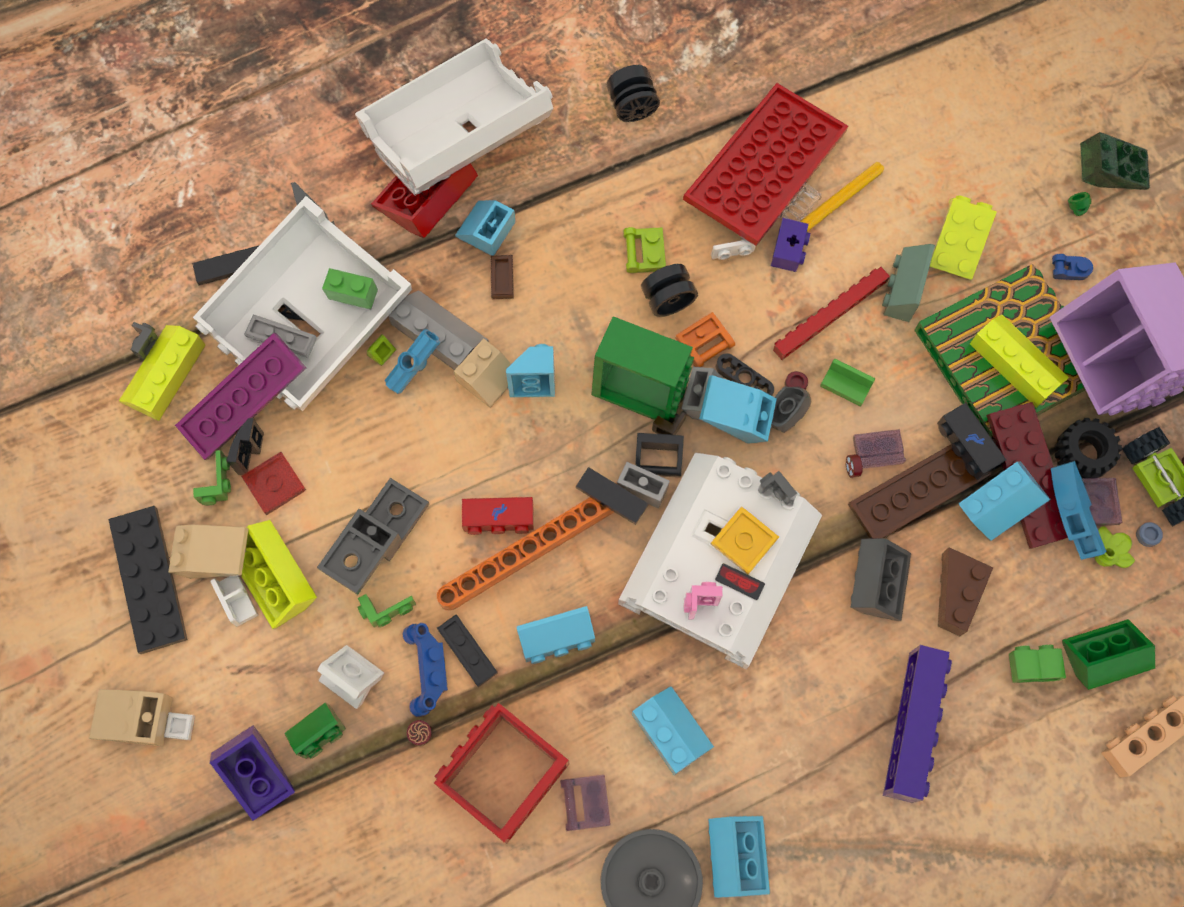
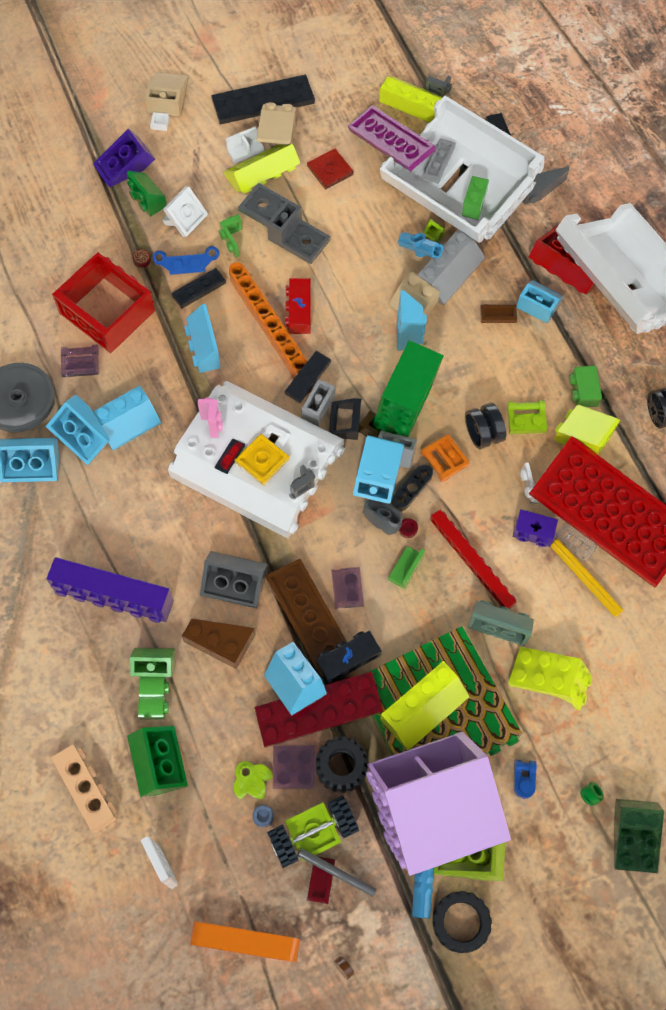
camera: 90 degrees right, 5 degrees down
(212, 494) = (331, 135): bright green bracket -> none
(245, 443) = (354, 144): black slope -> none
(605, 182) = (585, 386): none -> bright green brick
(667, 182) = (588, 427): none -> neon yellow slope
(697, 788) = (79, 429): none -> medium azure slope
(854, 465) = (332, 564): dark red tile -> none
(998, 666) = (152, 662): none -> bright green brick
(1075, 511) = (289, 737): dark azure slope -> none

